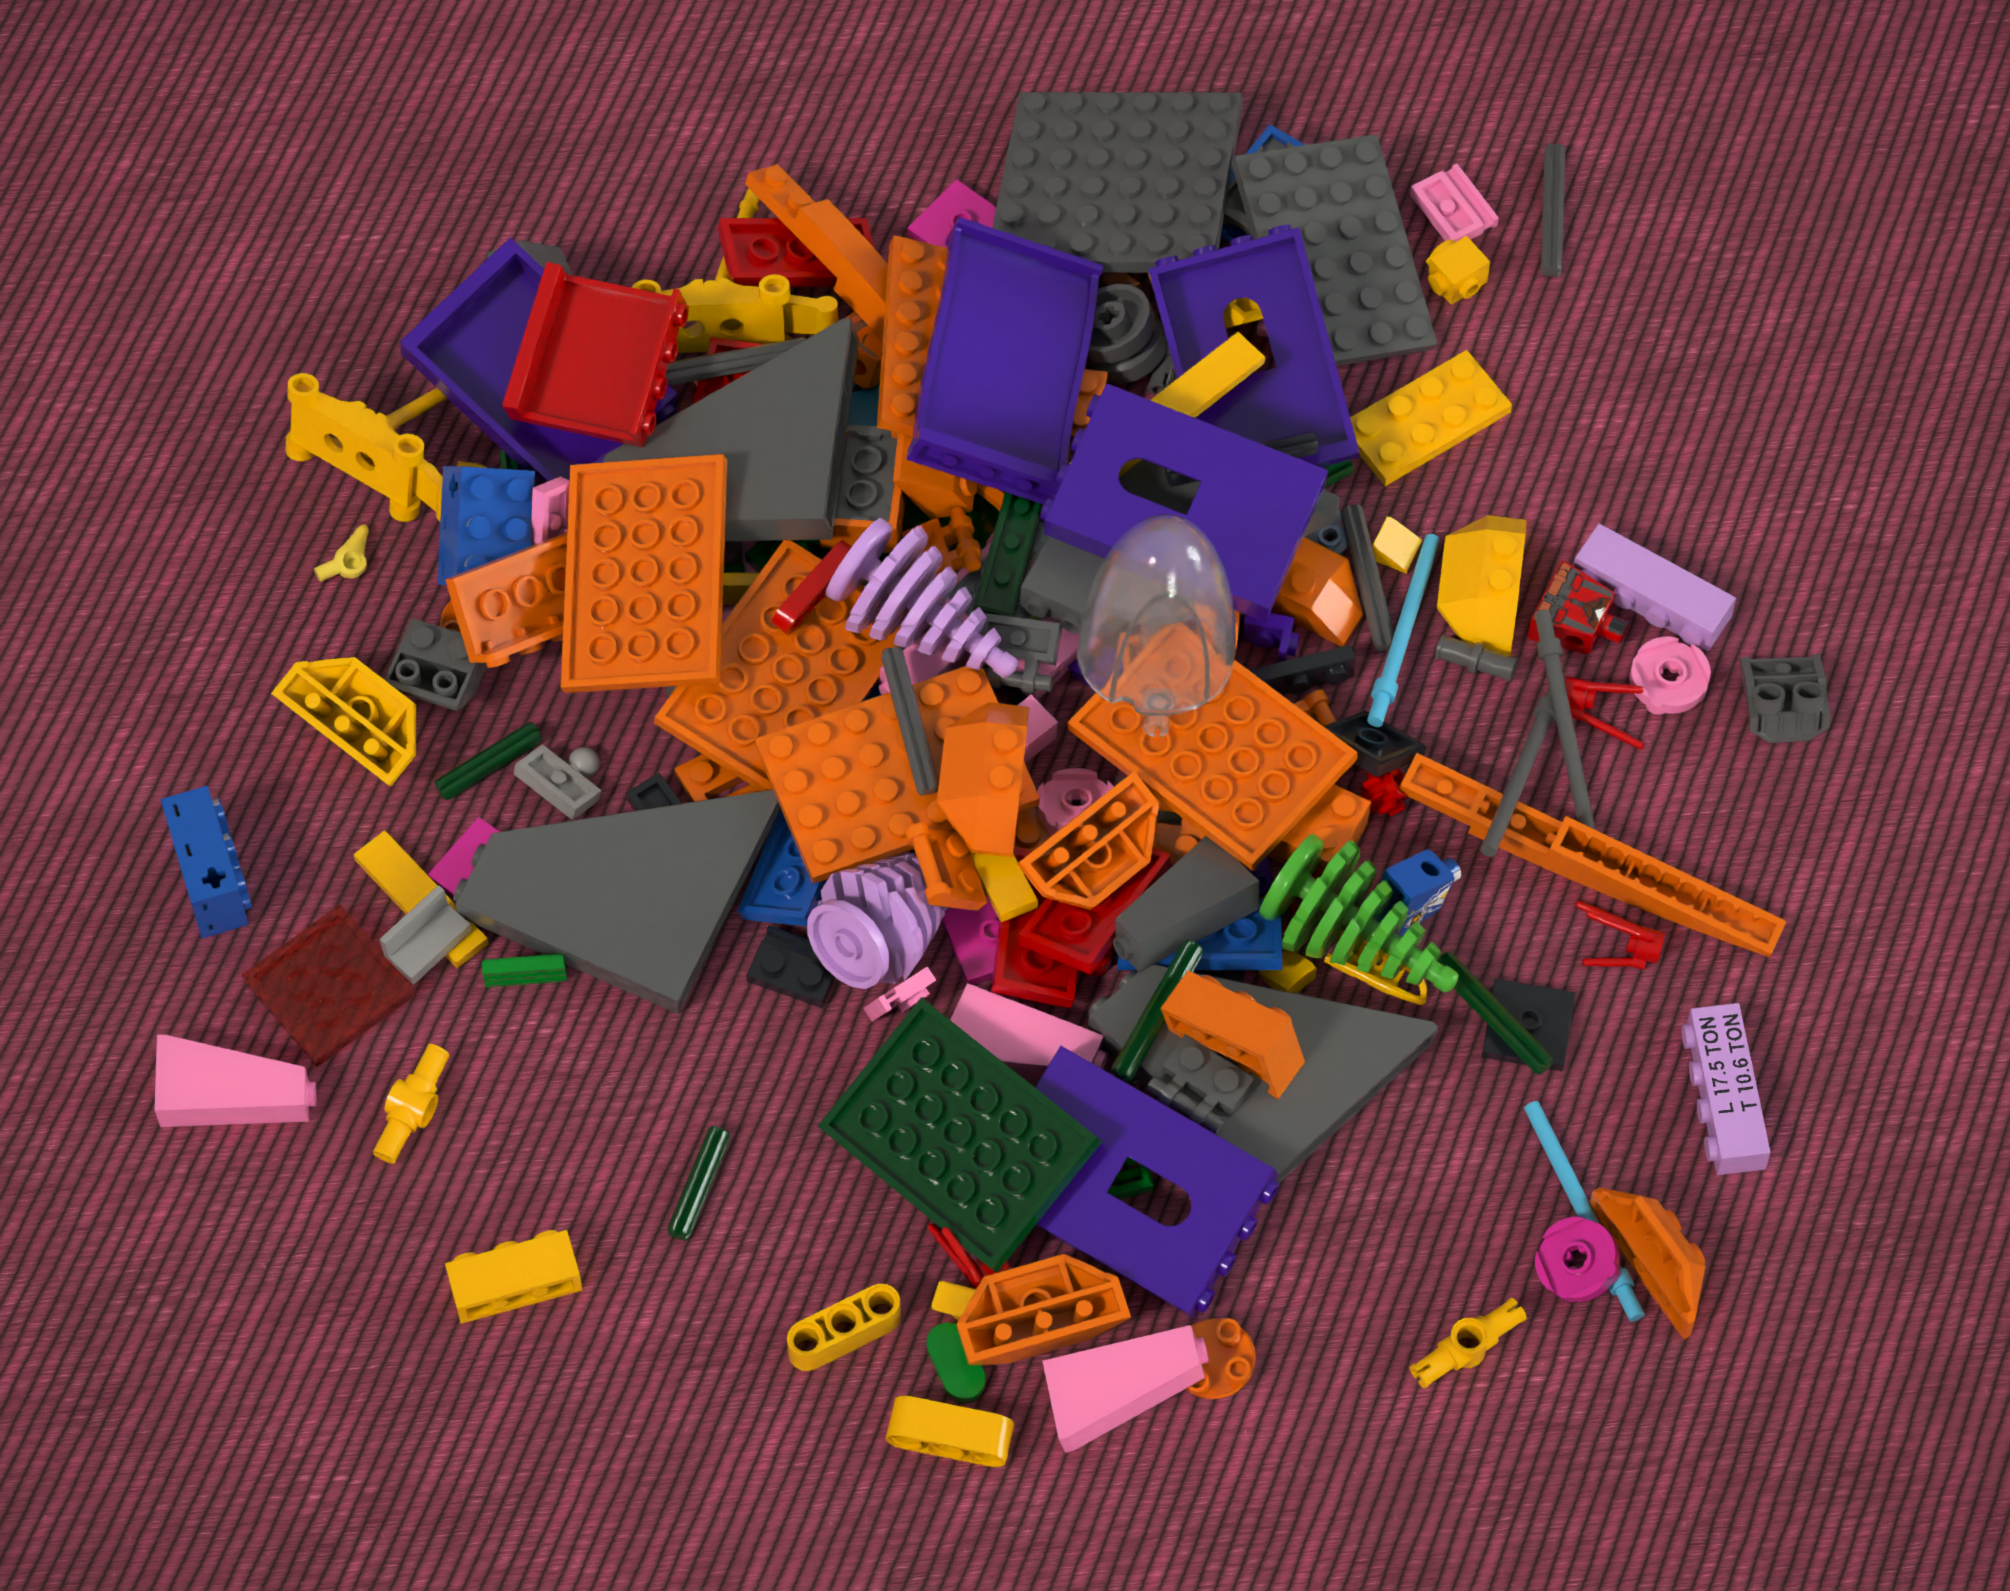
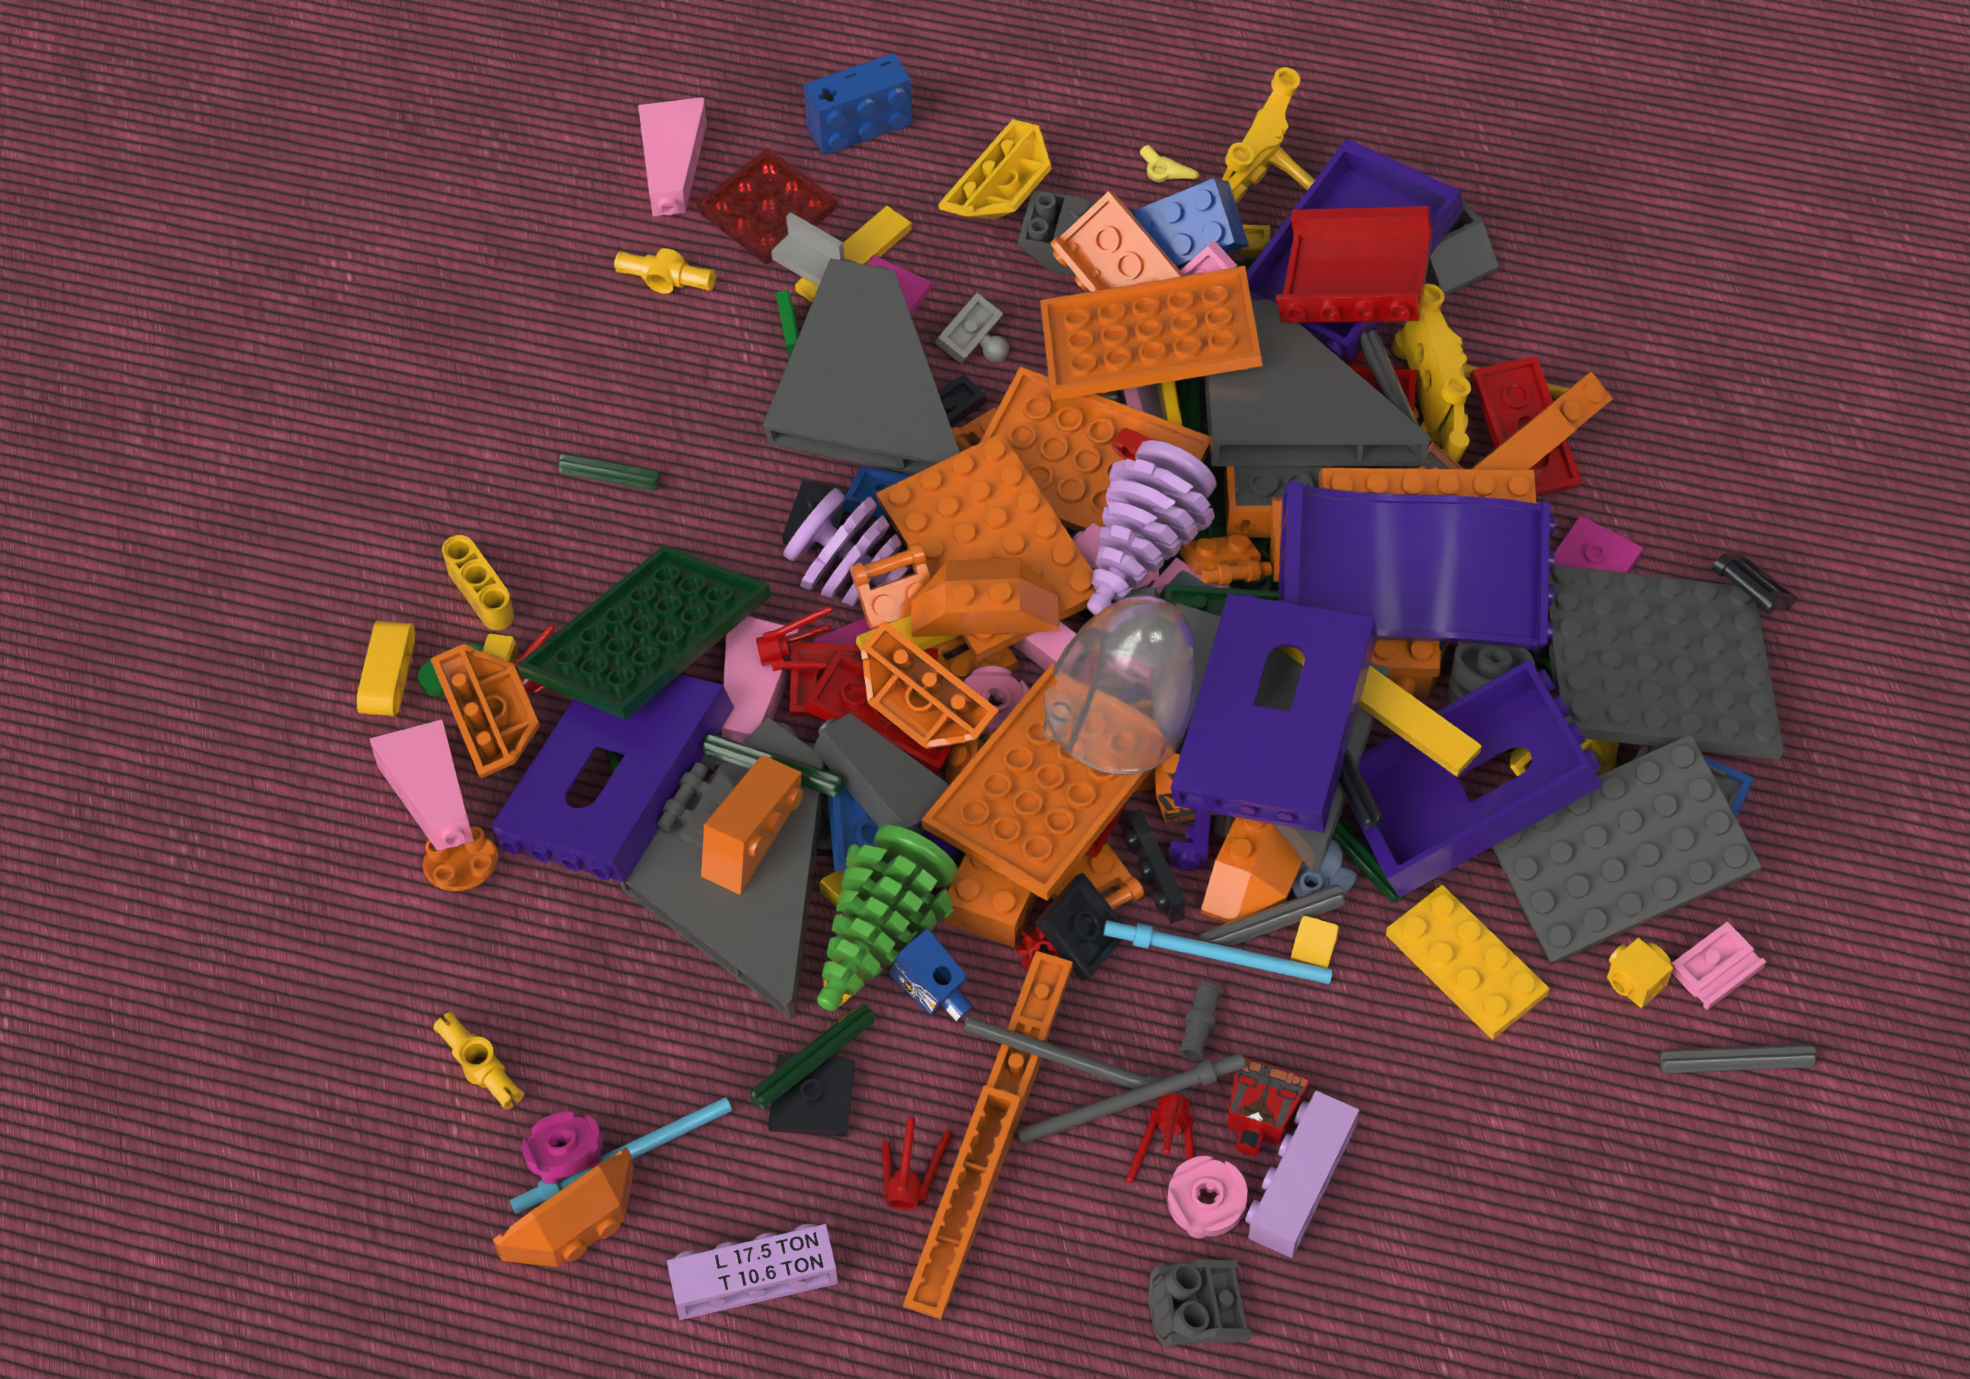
camera: 85 degrees right, 5 degrees down
(488, 761) = (986, 283): dark green axle -> none
(513, 1275) = (516, 354): yellow brick -> none
(902, 995) = (781, 583): bright pink plate -> none
(910, 721) = (1032, 534): dark grey axle -> none
(1003, 1001) = (775, 643): none -> red plant
(1022, 85) = (1754, 582): none -> black plate
(1483, 581) = (1289, 1023): yellow wedge -> none

